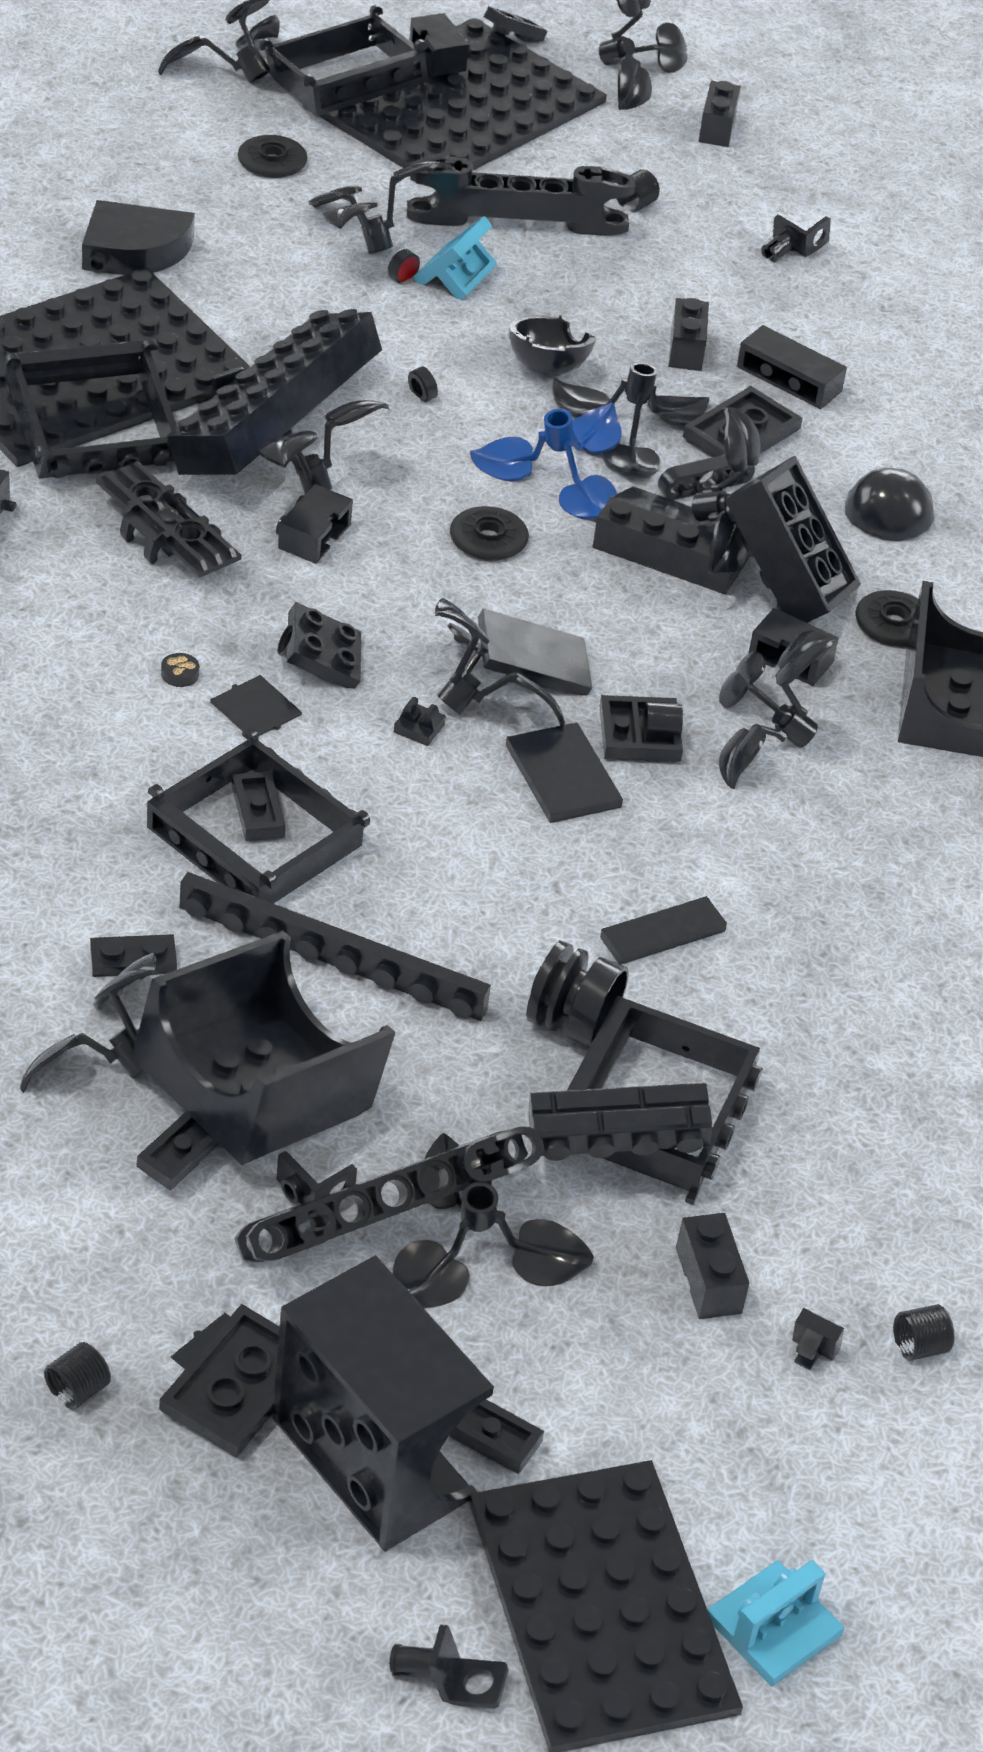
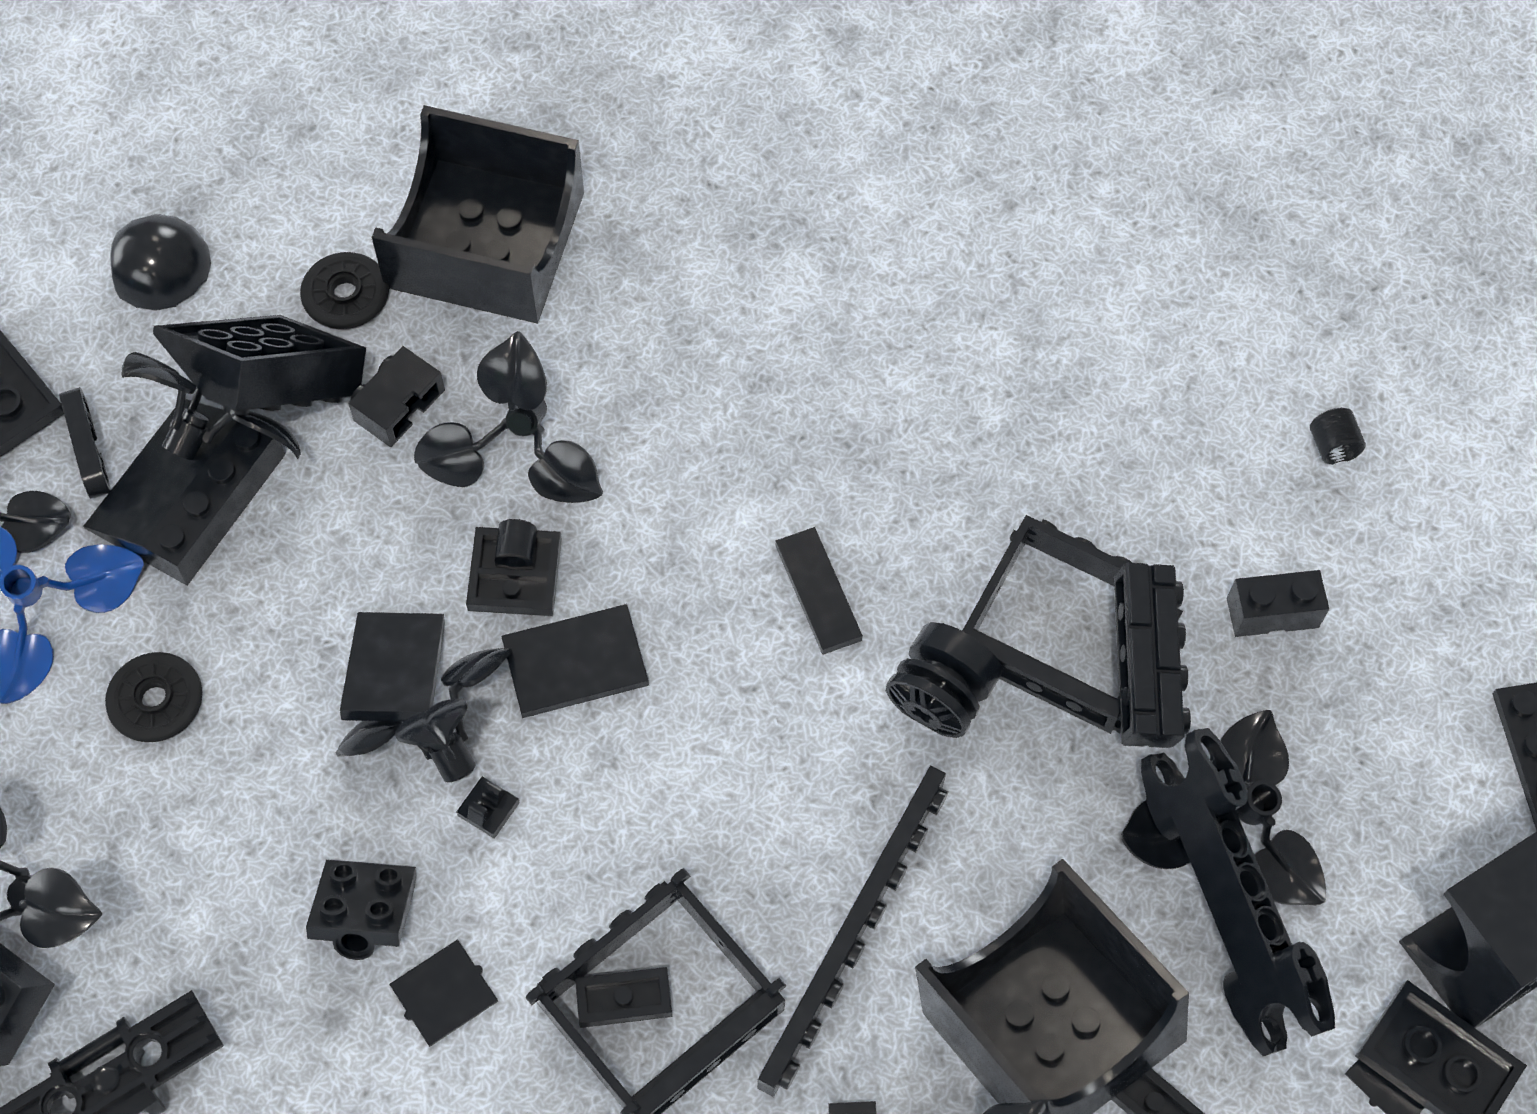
camera: 80 degrees left, 20 degrees up
(180, 669) = (375, 1079): black tile -> none
(301, 1187) = (1206, 961): black bracket -> none
(313, 522) = (134, 907): black brick -> none
(499, 1435) = (1476, 827): black plate -> none
(815, 1338) = (1354, 528): black tile -> none

